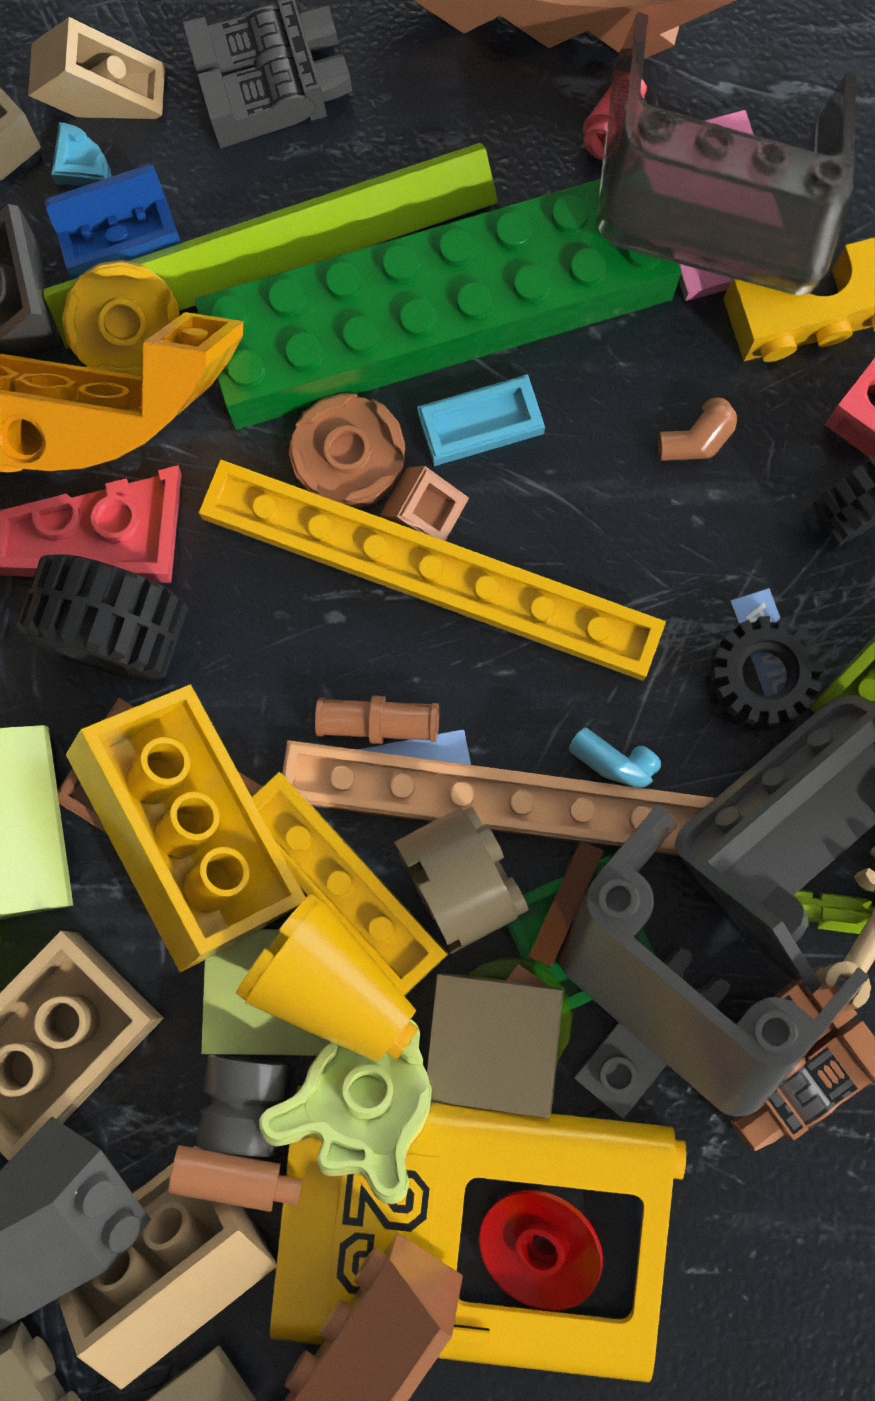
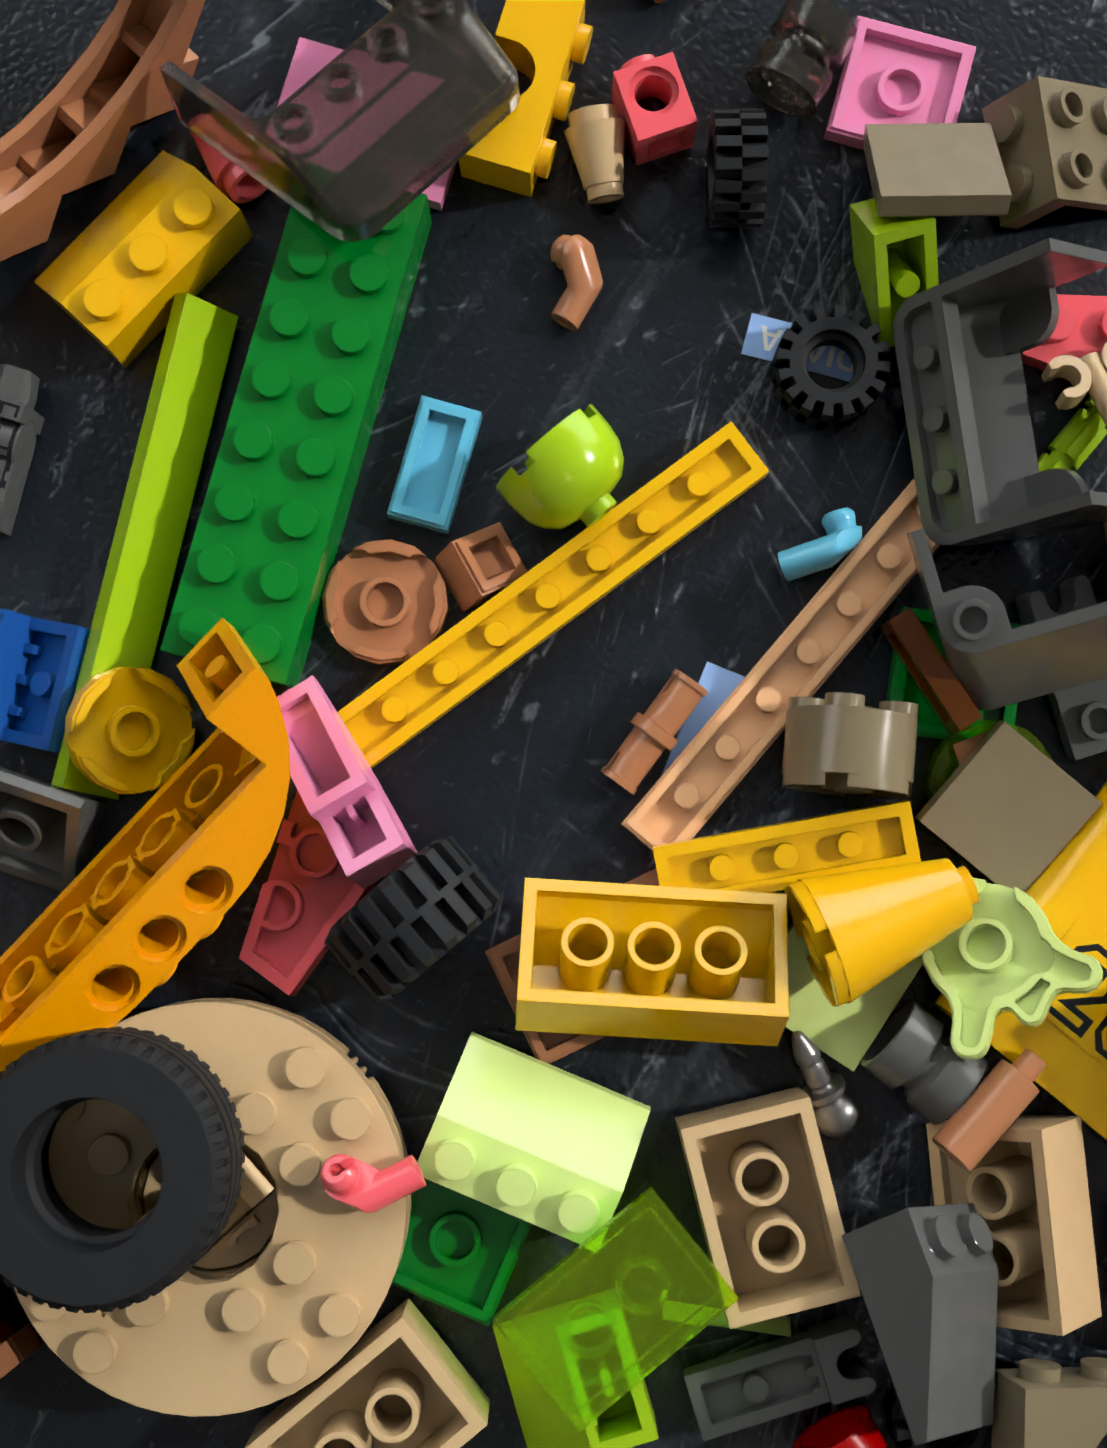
camera: 60 degrees left, 5 degrees up
(164, 1057) = (834, 1106): none -> flat silver bar
(176, 494) = (341, 787): none -> bright pink slope
(510, 104) = (151, 242): none -> yellow slope
(535, 515) = (567, 473): none -> lime cylinder
(813, 385) = (597, 148): none -> tan cone

